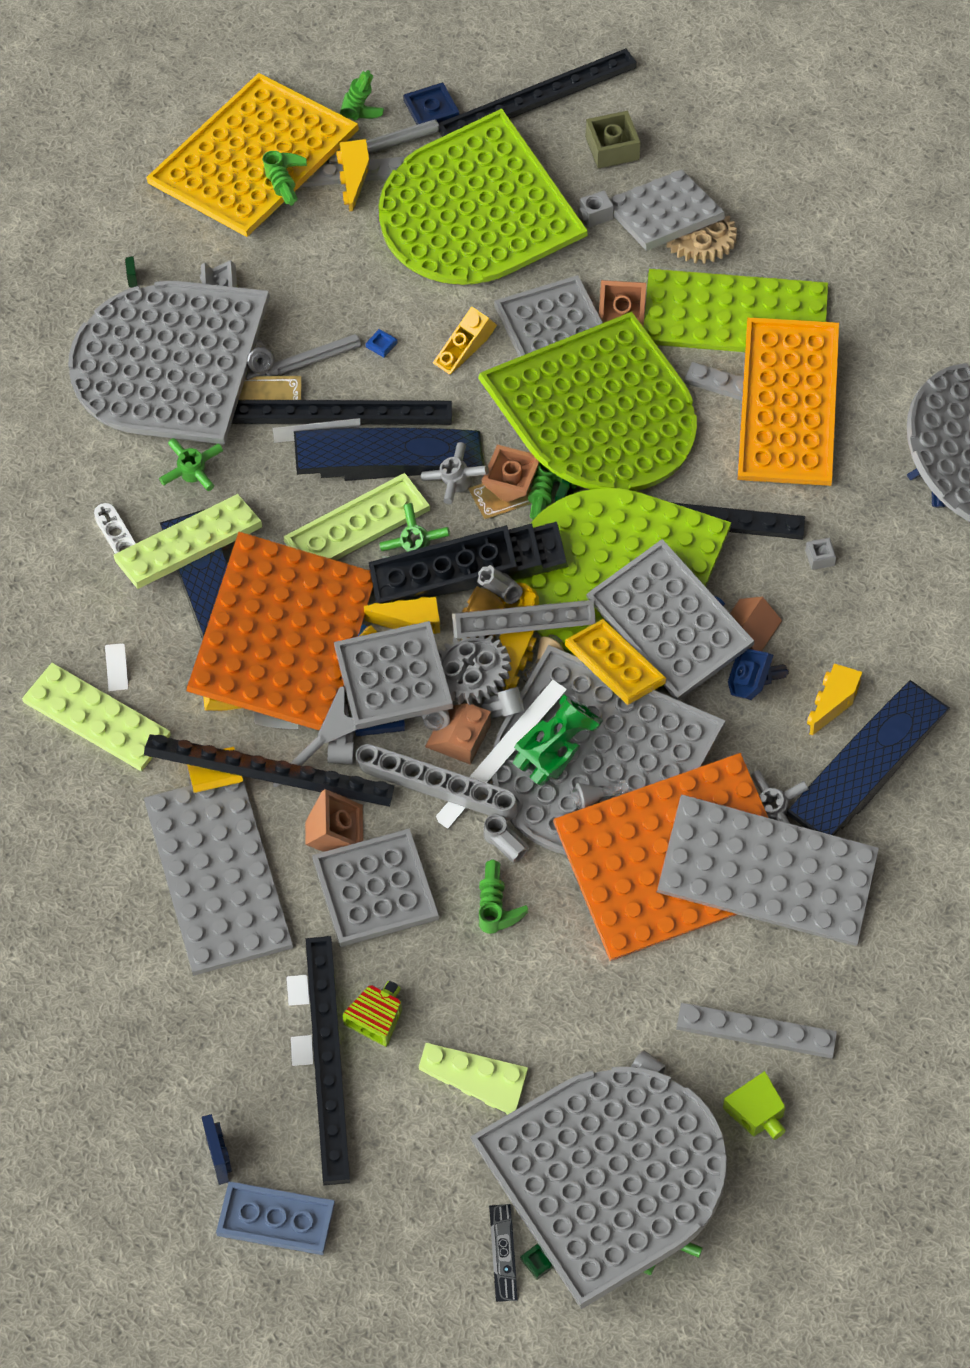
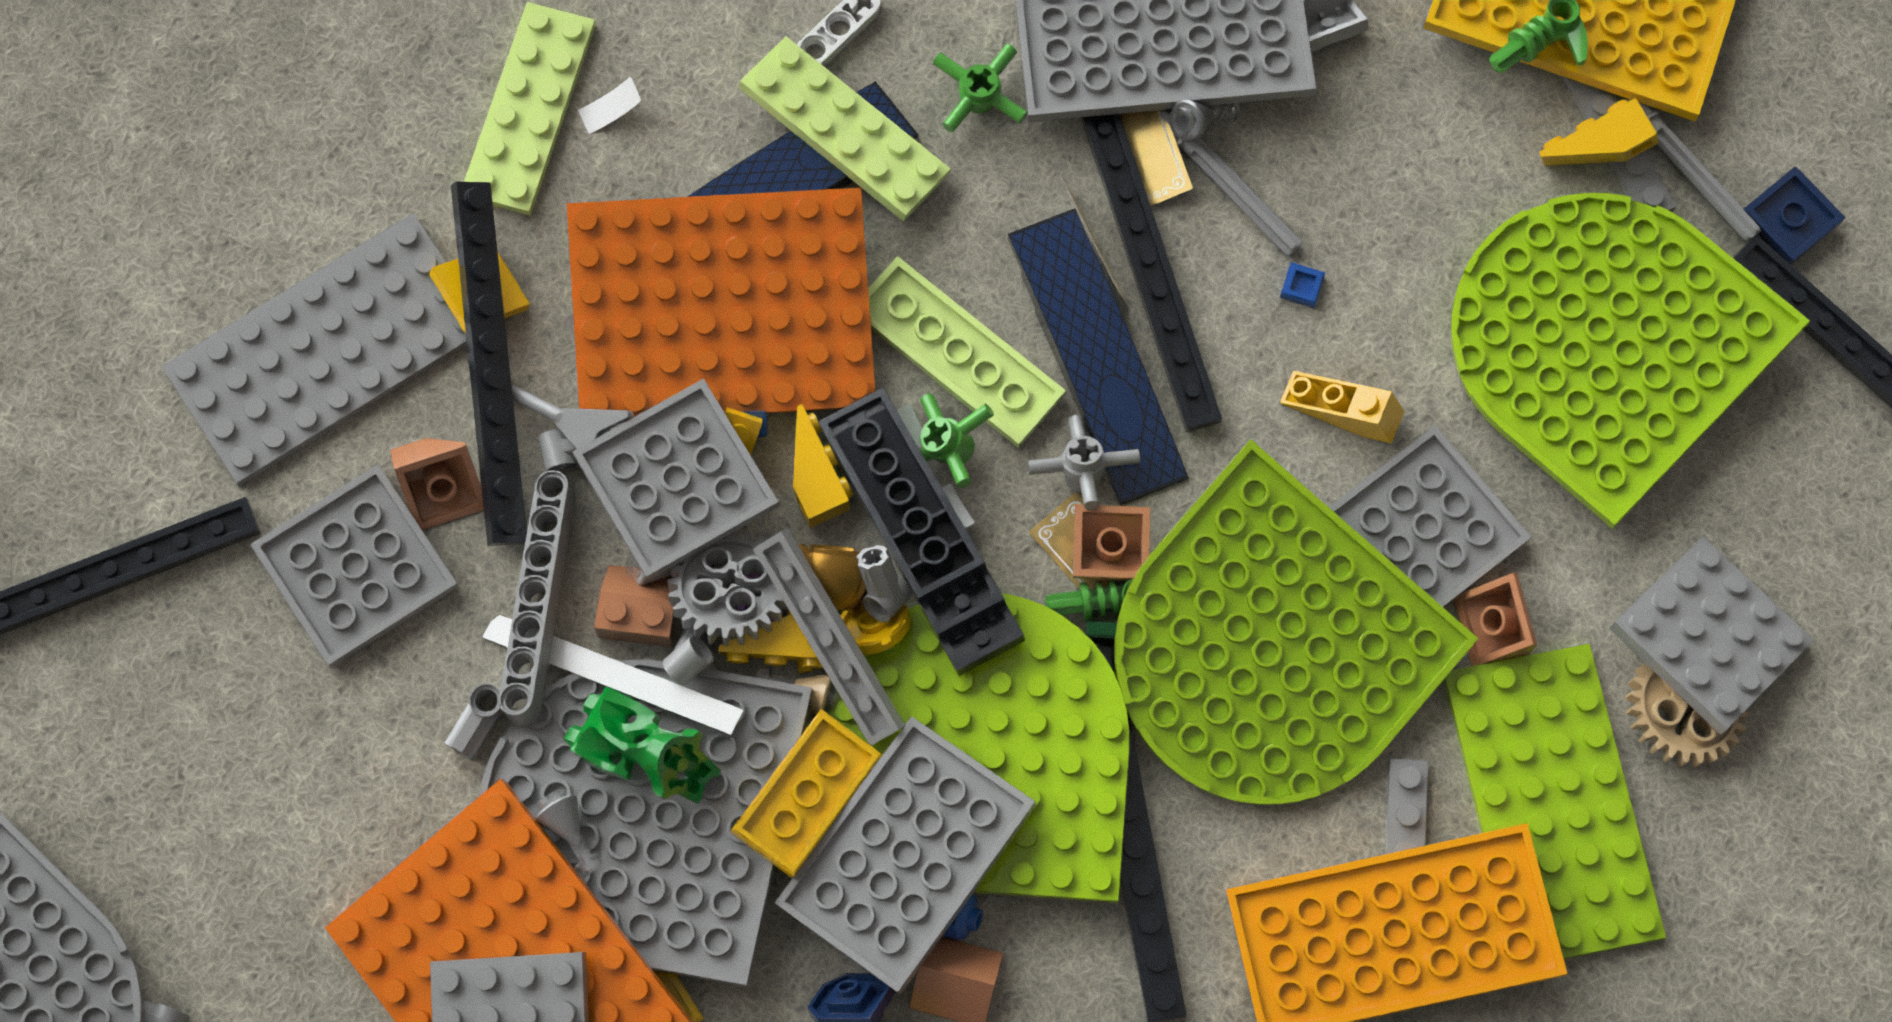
camera: 70 degrees right, 15 degrees up
(301, 1045) = (86, 544): white sticker -> none
(354, 99) = (1744, 99): bright green piece -> none
(375, 1013) = (155, 627): lime torso -> none
(485, 1078) = (98, 798): yellowish green wing -> none
(491, 901) = (368, 732): bright green piece -> none
(595, 209) = (1692, 526): light grey brick -> none
(612, 139) = (1826, 512): olive brick -> none

